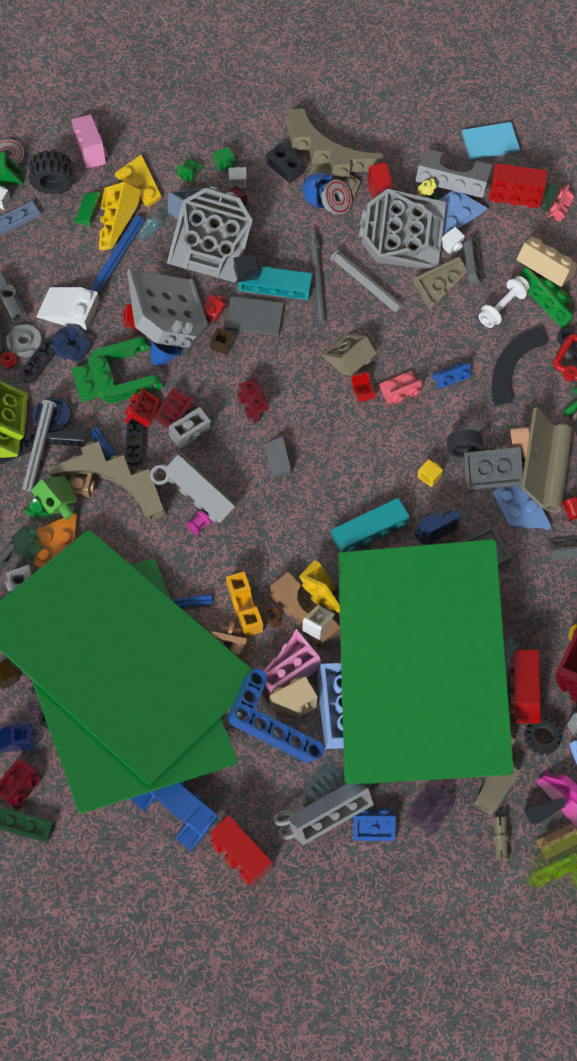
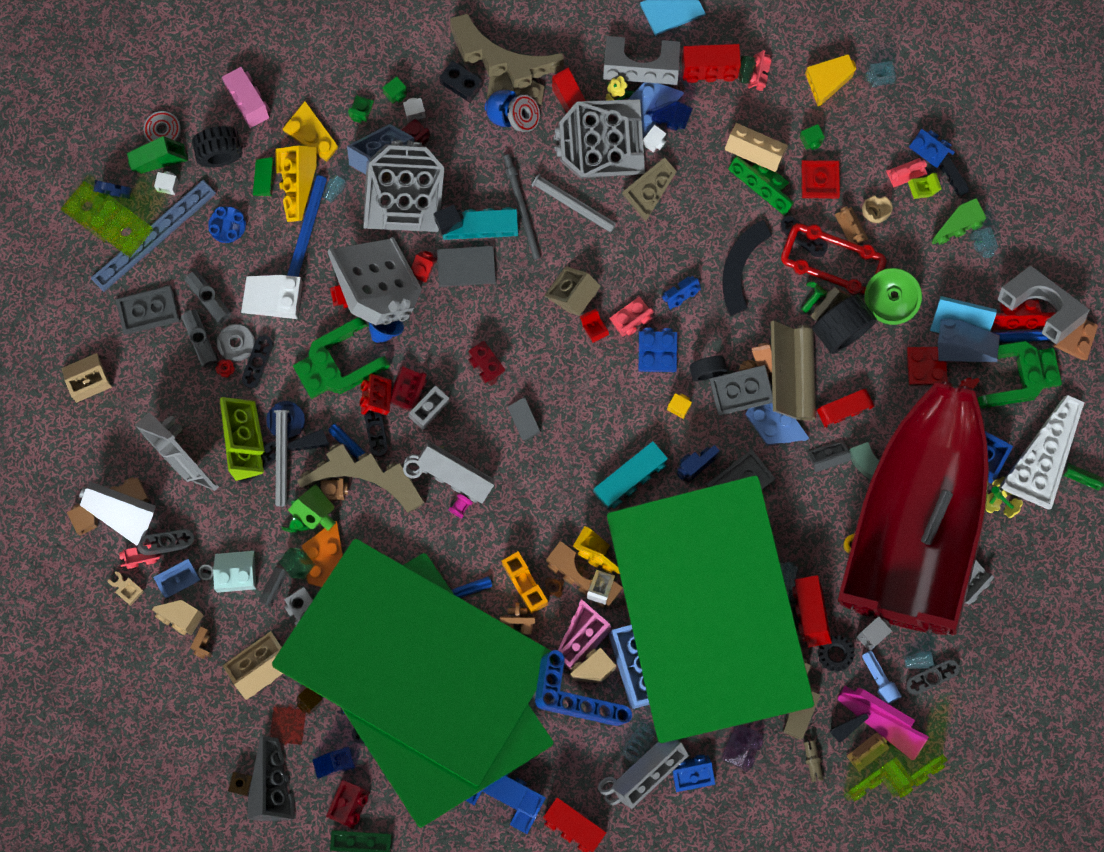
camera: 10 degrees left, 10 degrees up
(43, 240) = (227, 224): none -> blue dish
(67, 351) = (286, 347): dark blue plate -> none
(219, 338) = (439, 297): dark brown plate -> none
(419, 421) = (657, 350): none -> blue plate
(473, 261) = (680, 158): dark grey beam -> none
(474, 222) = (671, 113): none -> clear blue slope
(490, 315) = (708, 219): white piece -> none

